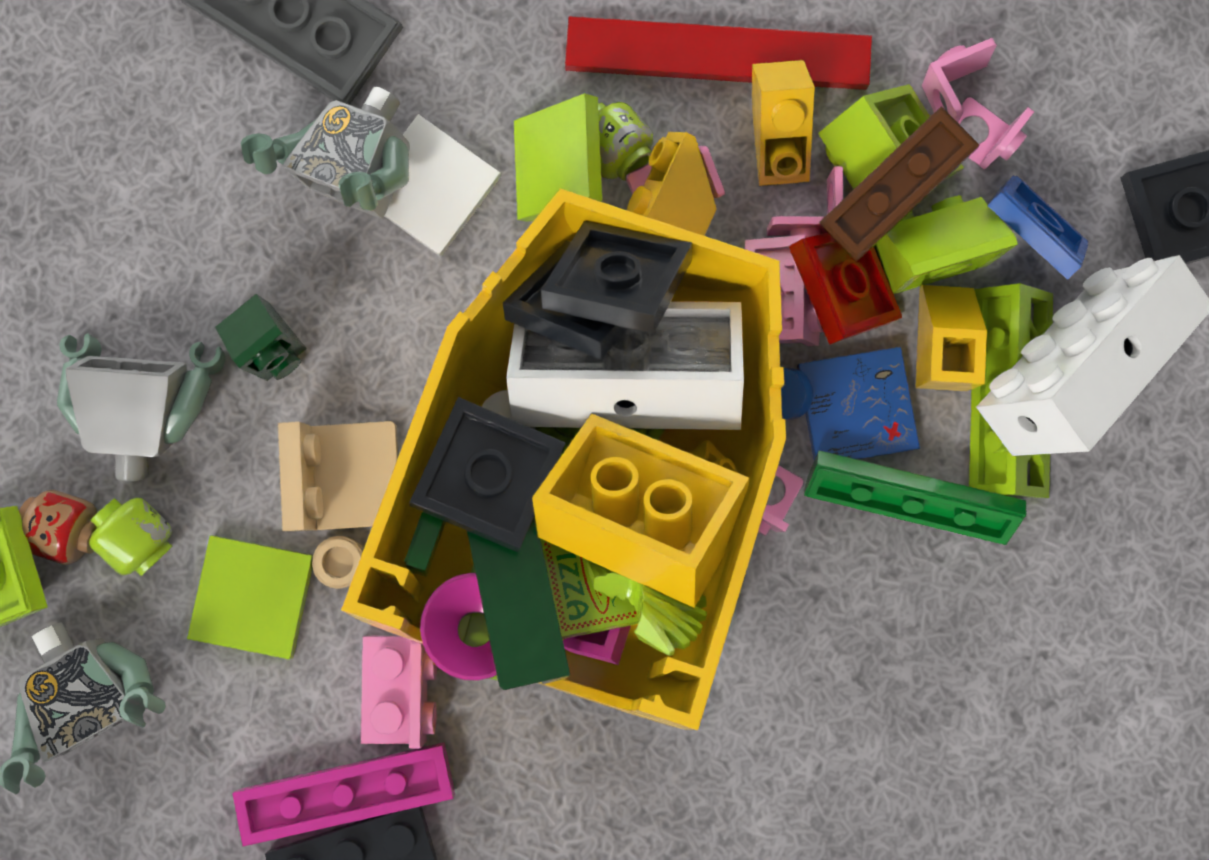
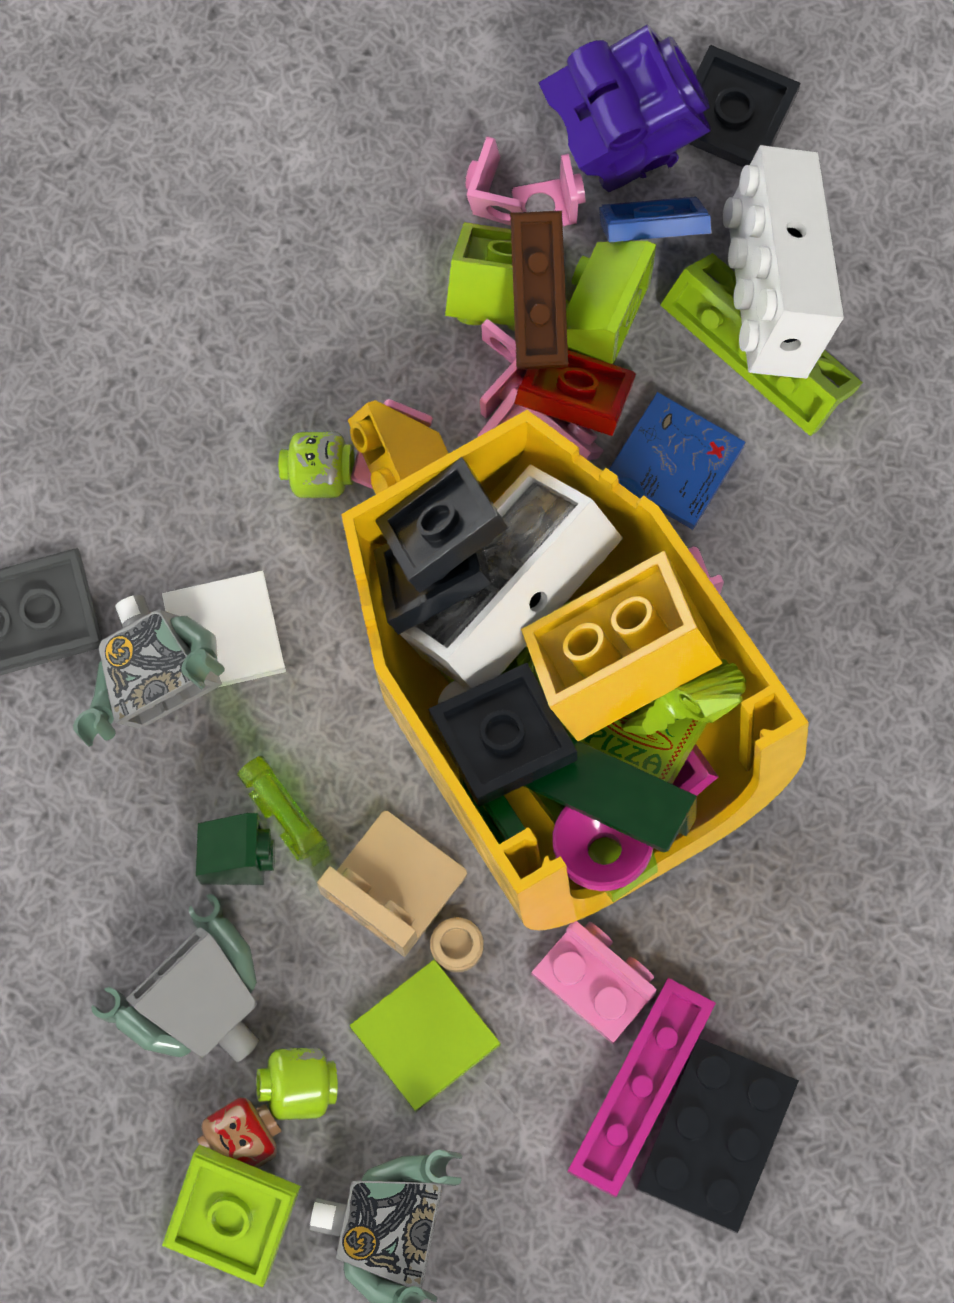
camera: 50 degrees left, 10 degrees down
(321, 350) = (271, 799): none -> clear neon green plate
(555, 152) = (294, 517): lime tile -> none
(713, 51) = (314, 338): red tile -> none
(782, 121) = (412, 333): yellow slope -> none
(914, 498) = (778, 476): green tile -> none
(950, 339) = (683, 352): yellow slope -> none
(1118, 121) = (628, 106): none -> dark purple piece

